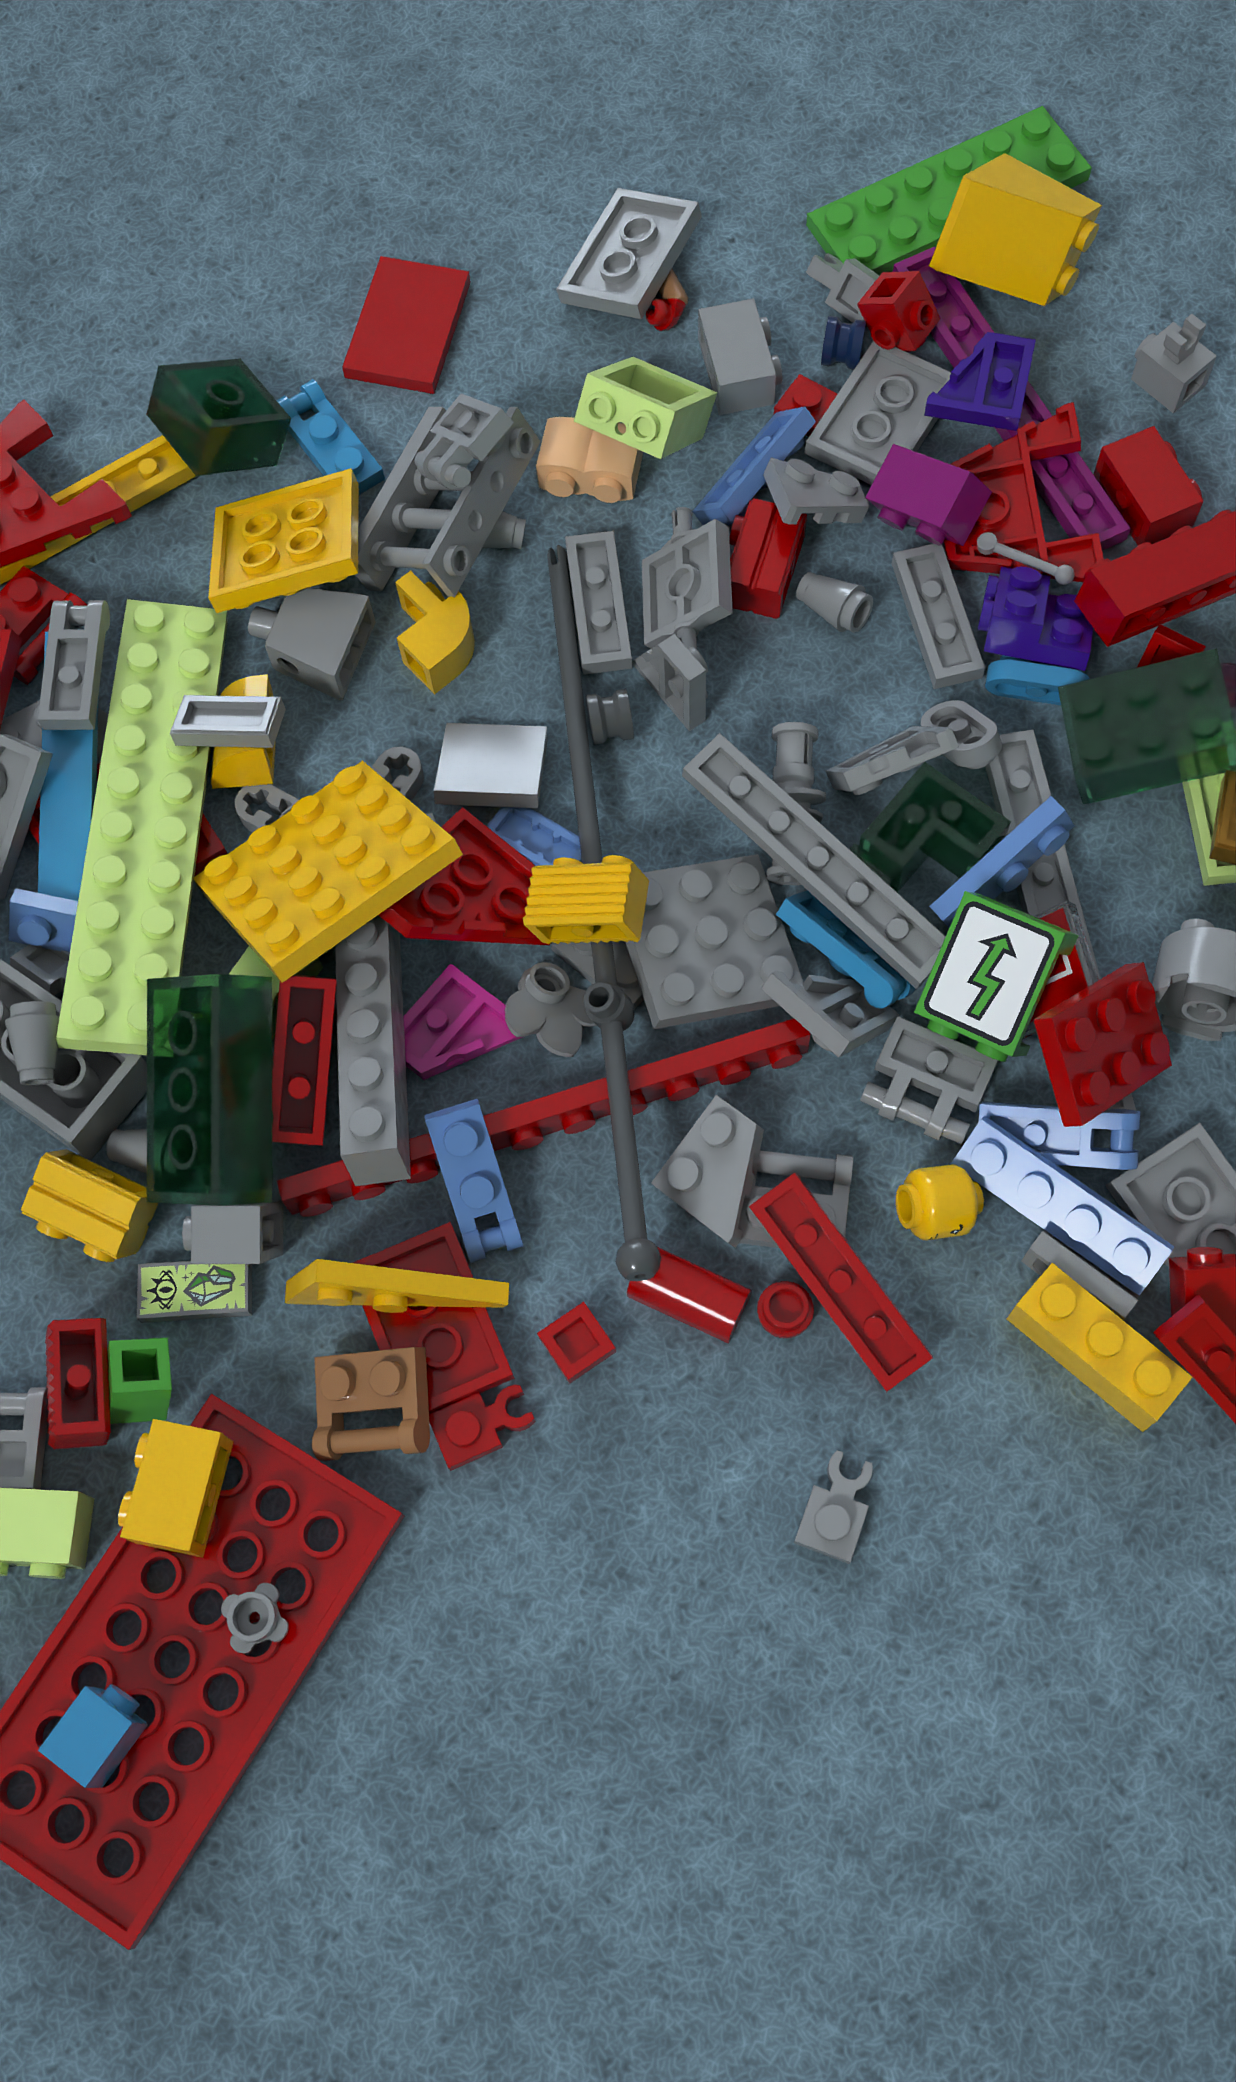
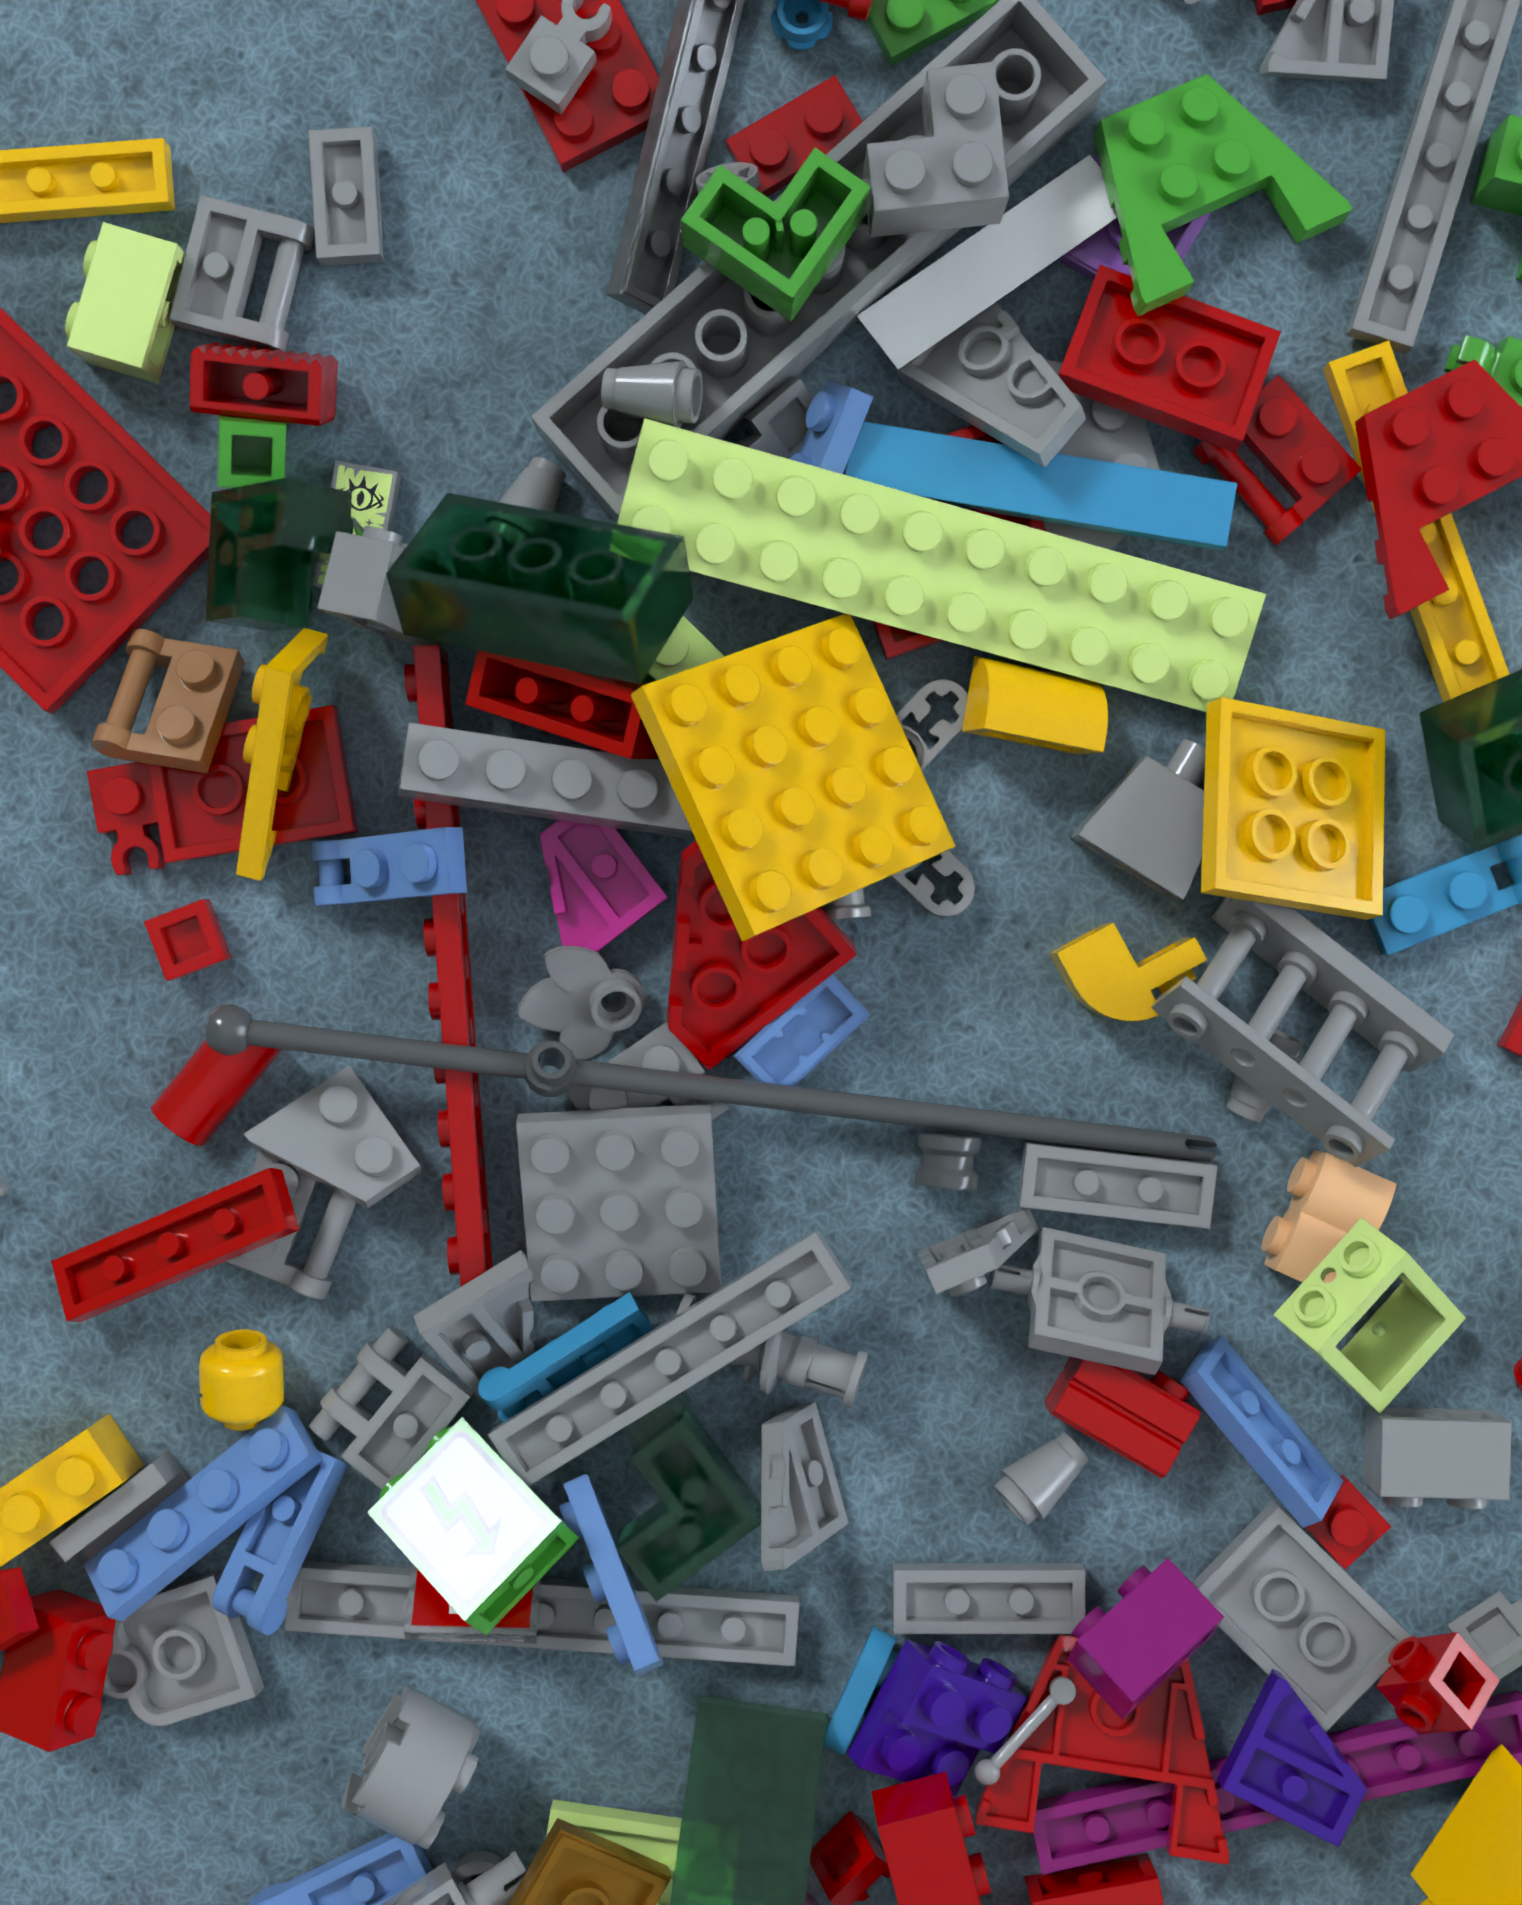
camera: 95 degrees right, 20 degrees up
(73, 665) = (1168, 512): light grey plate -> none
(89, 1205) = (472, 427): yellow brick -> none
(175, 1487) = (114, 473): yellow brick -> none
(215, 1348) = (265, 548): none -> clear green brick
(228, 721) = (1034, 691): light grey tile -> none
(462, 433) = (1366, 1084): light grey plate -> none
(491, 765) = (917, 1001): tile -> none
(586, 901) = (674, 1074): yellow brick -> none
(785, 1309) = (171, 1176): red plate -> none
(802, 489) = (1187, 1493): light grey wing -> none
(843, 342) = (1421, 1597): dark blue wheel -> none
(974, 732) = (803, 1586): light grey plate -> none
(1103, 1043) = (347, 1621): red plate -> none

